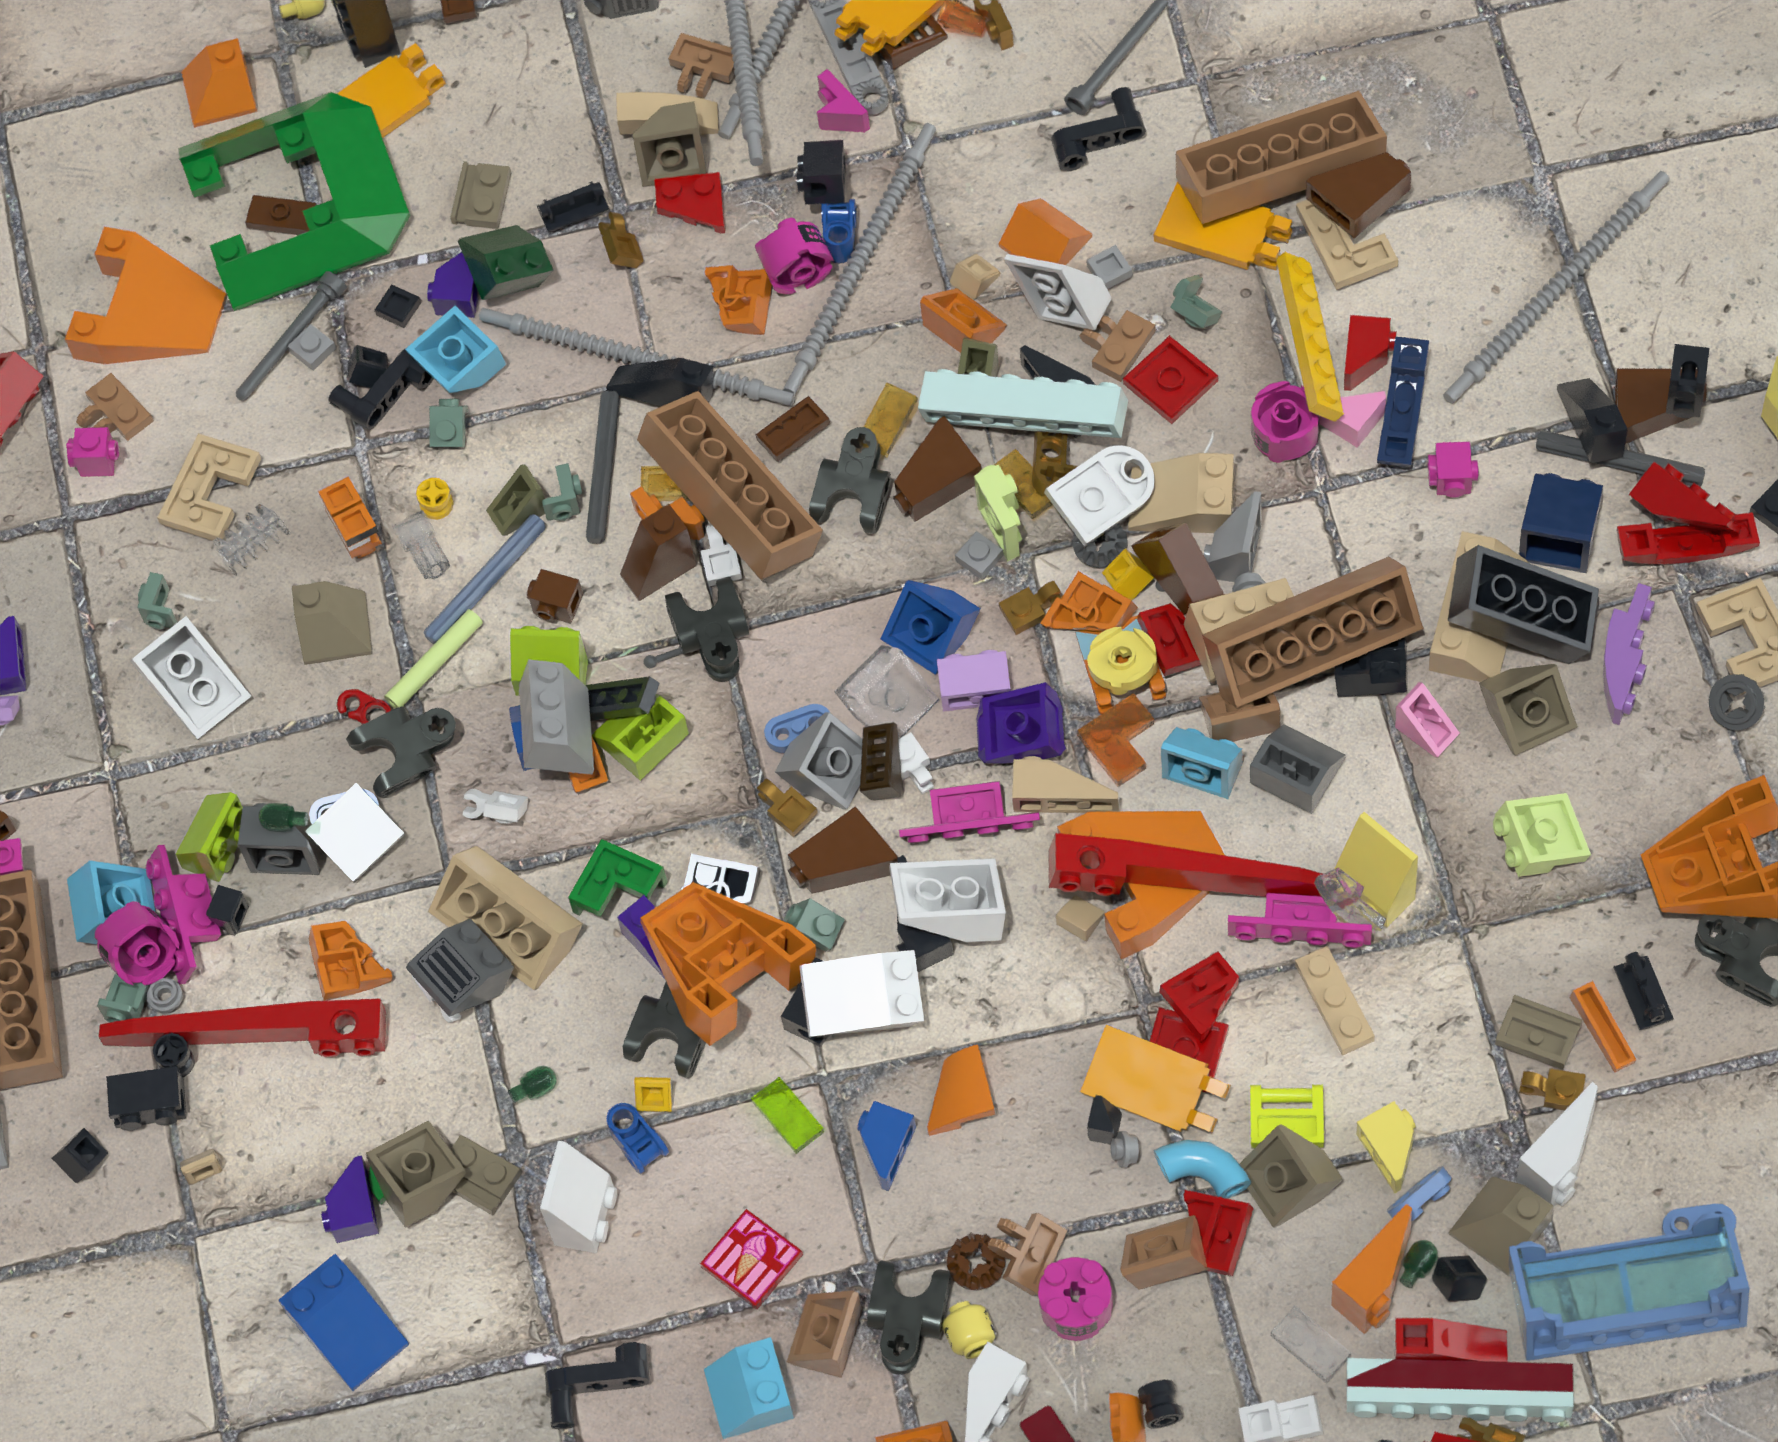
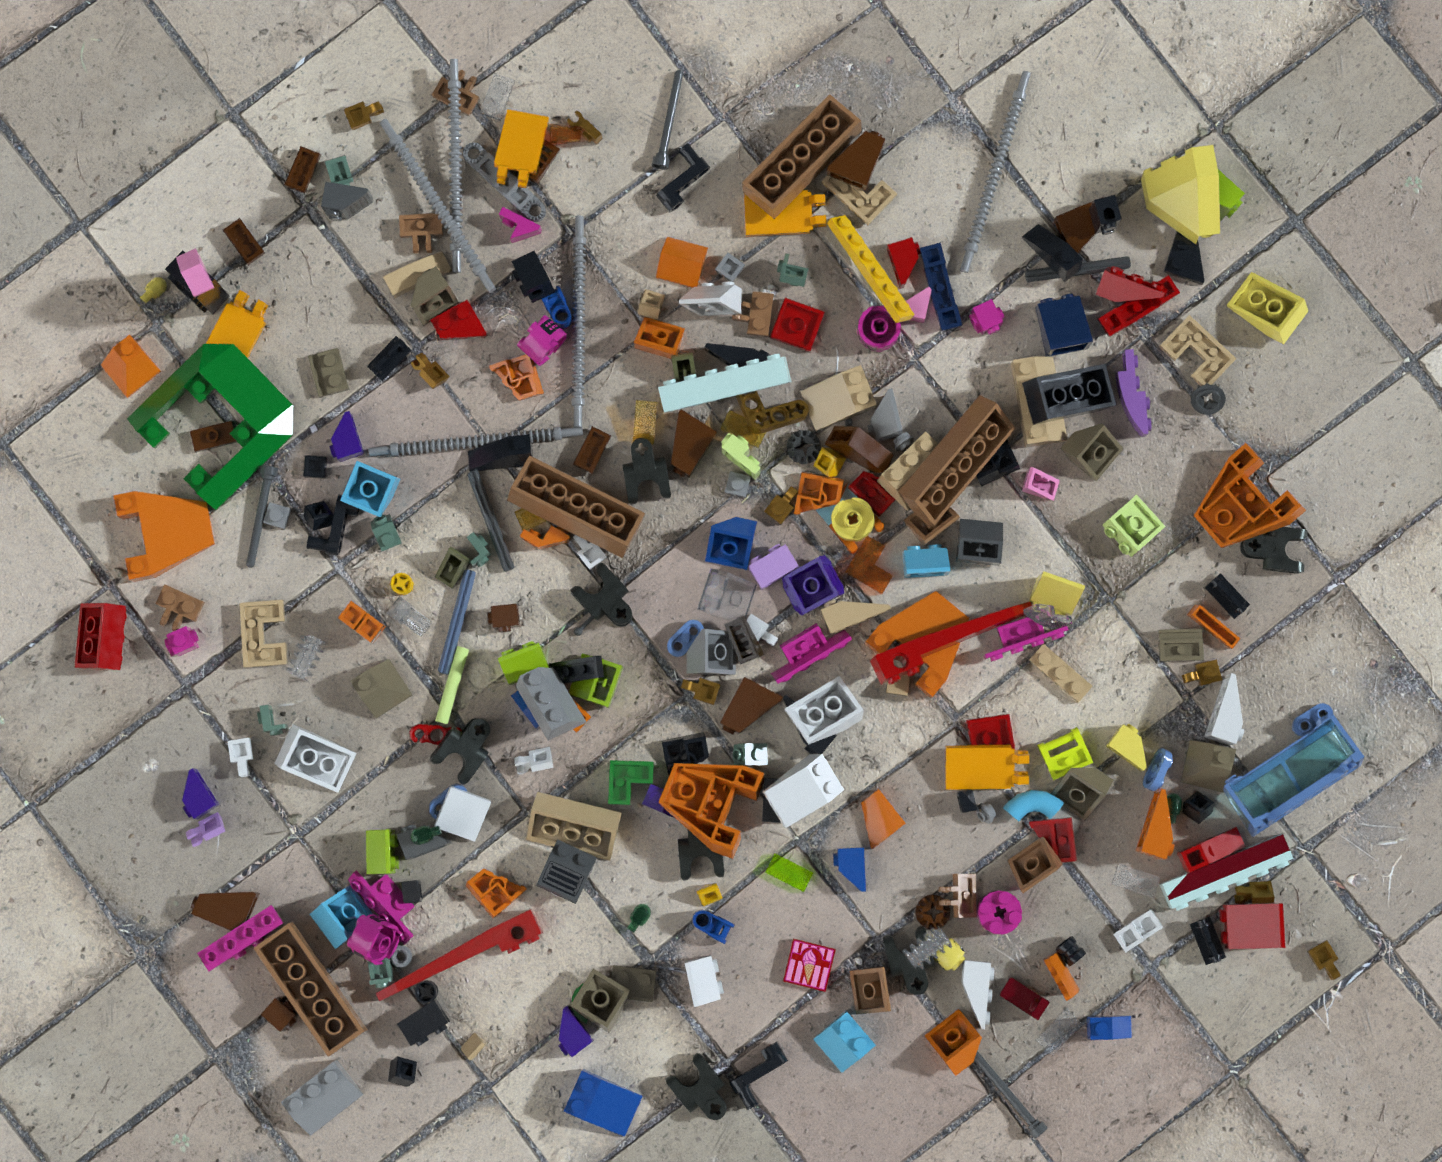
camera: 30 degrees left, 20 degrees up
(91, 629) = (241, 752): none -> white plate
(498, 1370) = (703, 1092): none -> pearl dark grey piece
(505, 261) = (369, 415): dark green slope -> none
(657, 553) = (554, 569): reddish brown slope -> none
(936, 1292) = (927, 948): none -> clear piece
(1100, 493) = (795, 421): white tile -> none
(1201, 993) = (987, 703): red wing -> none

